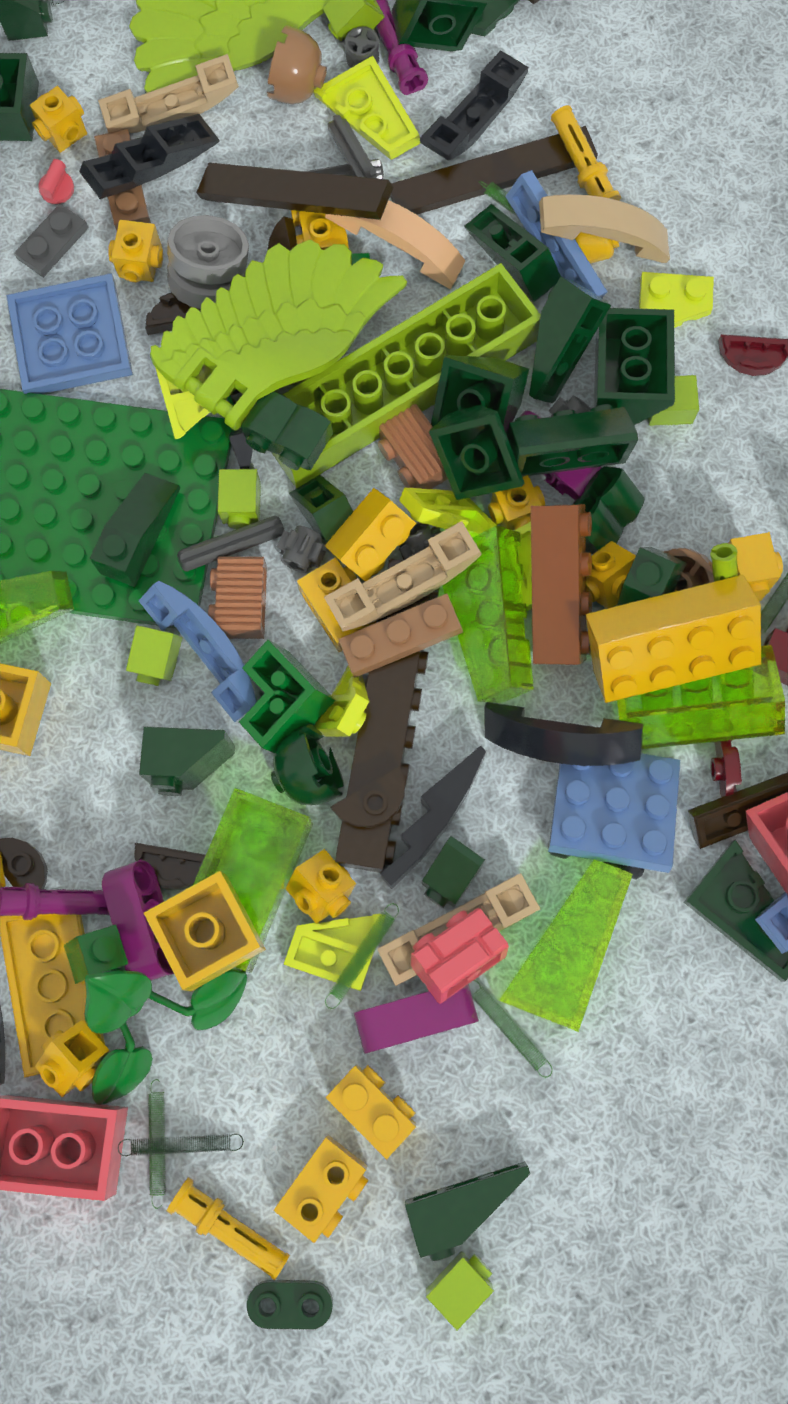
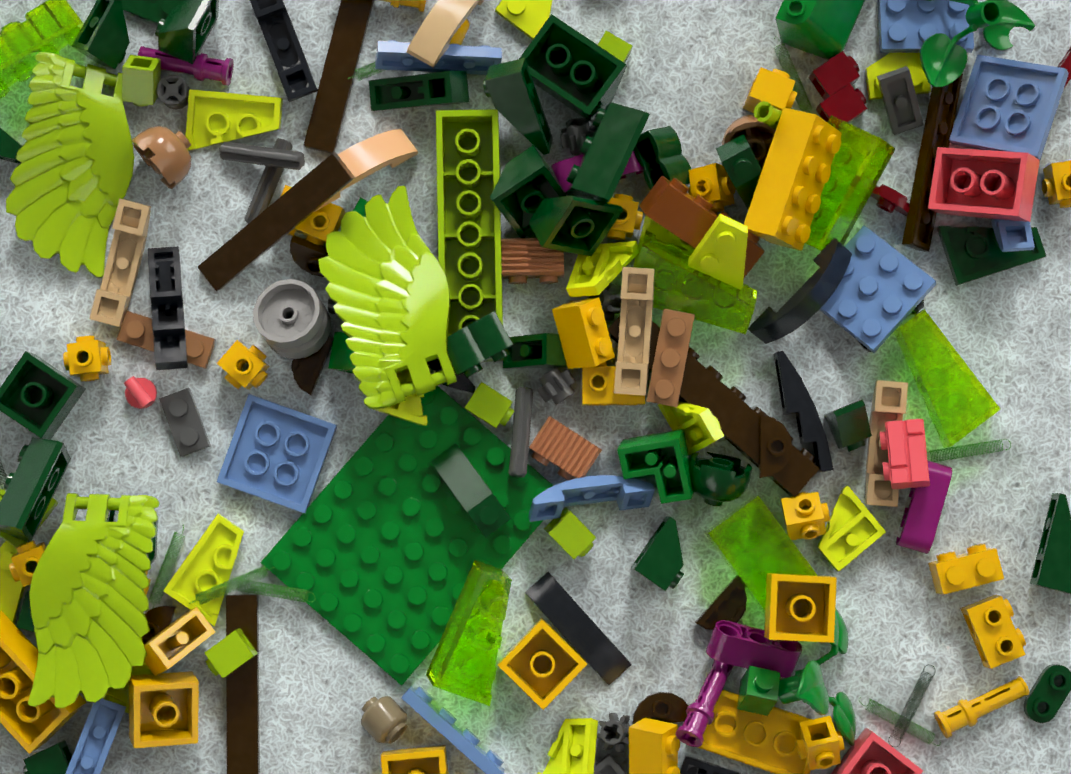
camera: 65 degrees left, 10 degrees up
(56, 727) = (578, 628): none -> black slope
(359, 962) = (864, 523): bright green piece -> none
(546, 614) = (722, 252): none -> neon yellow wing

